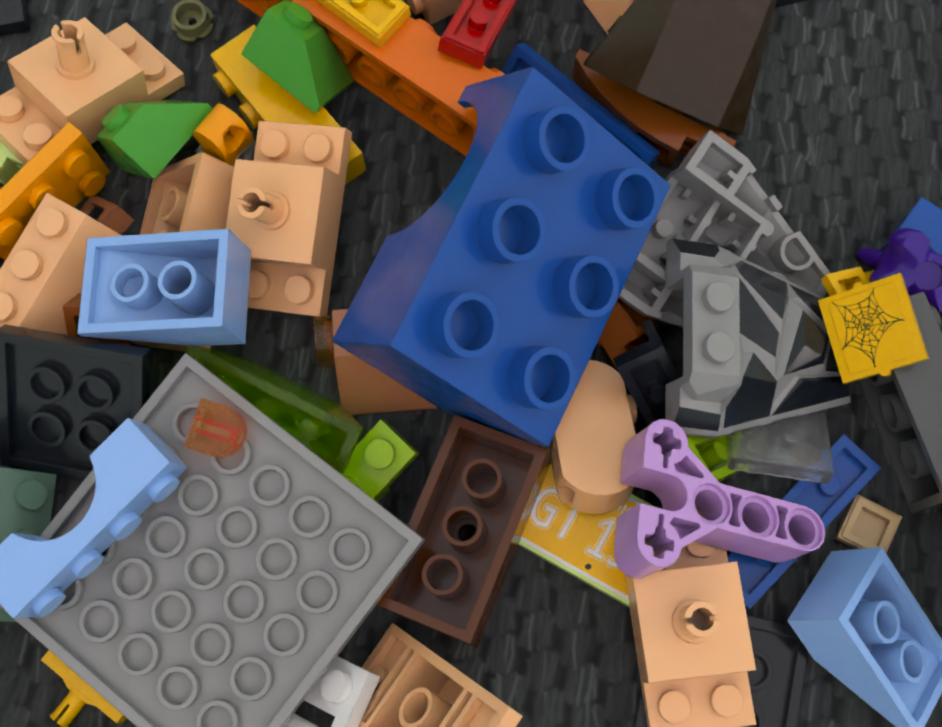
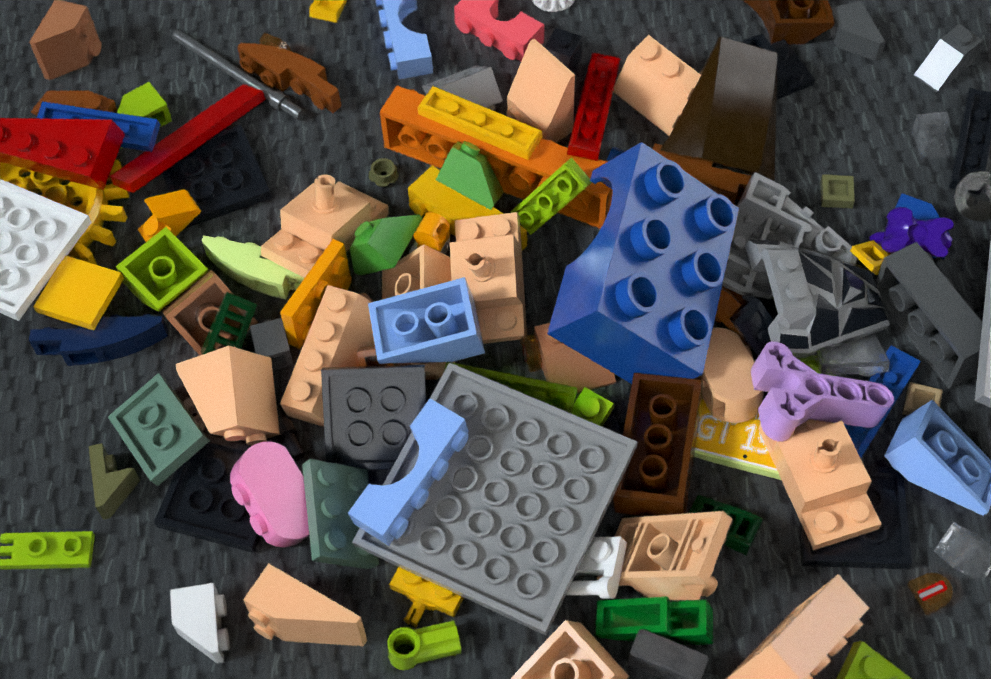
camera: 10 degrees left, 15 degrees down
(216, 430) = (484, 403): clear orange tile -> none
(405, 109) = (552, 196): none -> lime tile
(564, 690) = (740, 517): none -> dark green slope
(828, 171) = (837, 191): none -> olive plate
(873, 329) = (890, 268): yellow piece -> none

